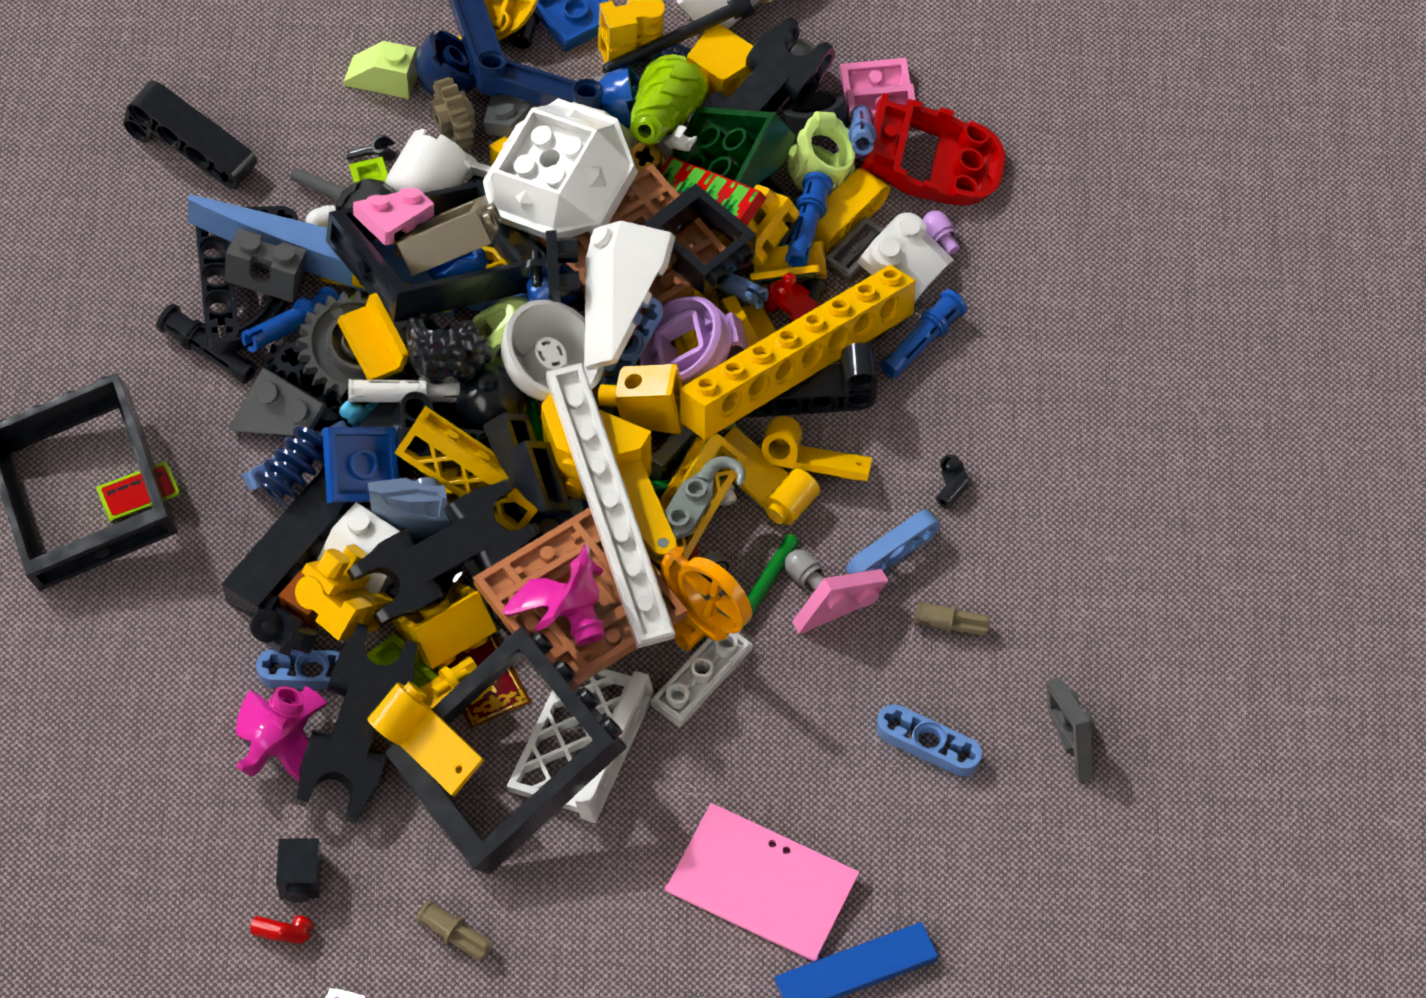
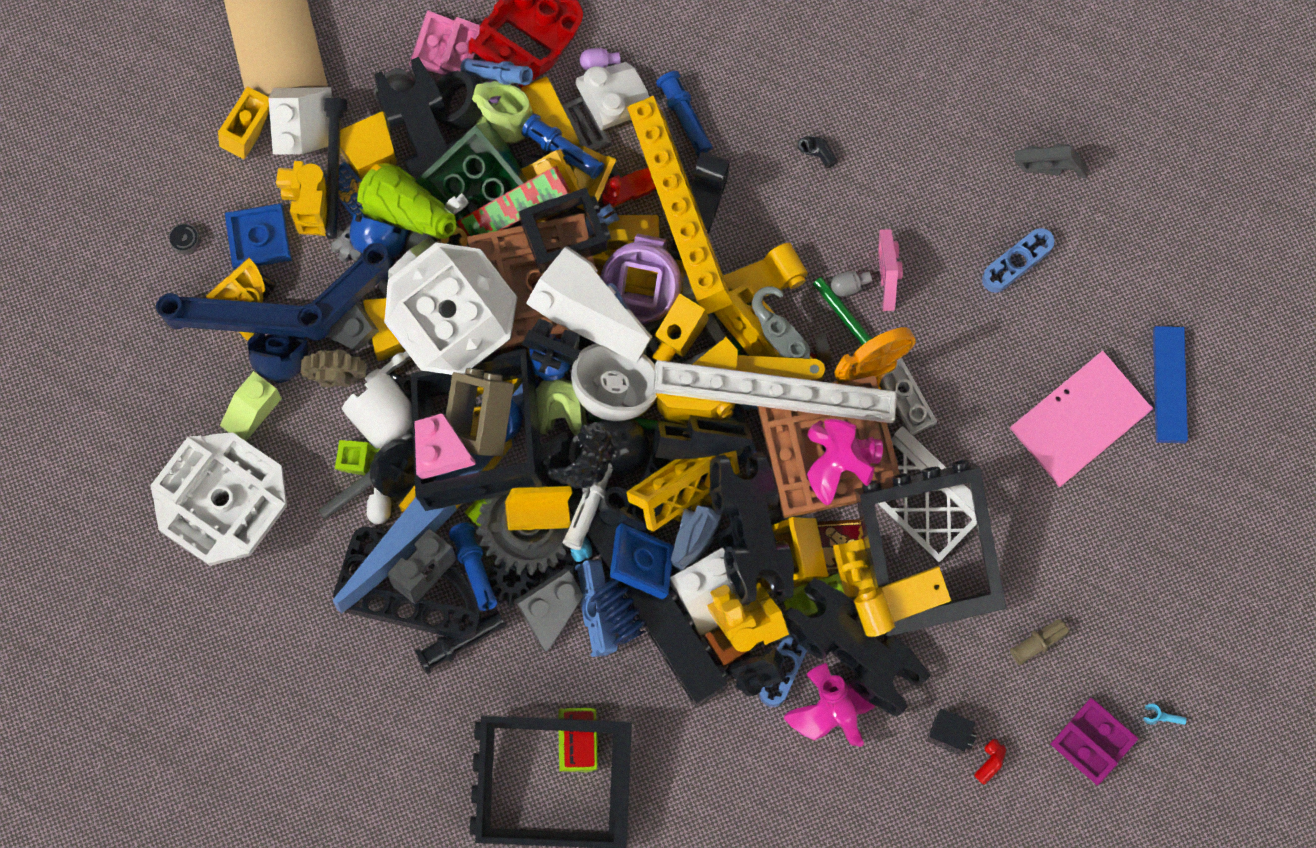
camera: 65 degrees left, 15 degrees up
(189, 132) = (221, 598): black beam -> none
(268, 68) = (198, 476): none -> white piece
(378, 146) = (325, 445): black hand -> none
(784, 449) = (755, 244): yellow door -> none
(896, 543) = (857, 214): medium blue beam -> none
(951, 619) = (930, 202): dark tan axle -> none

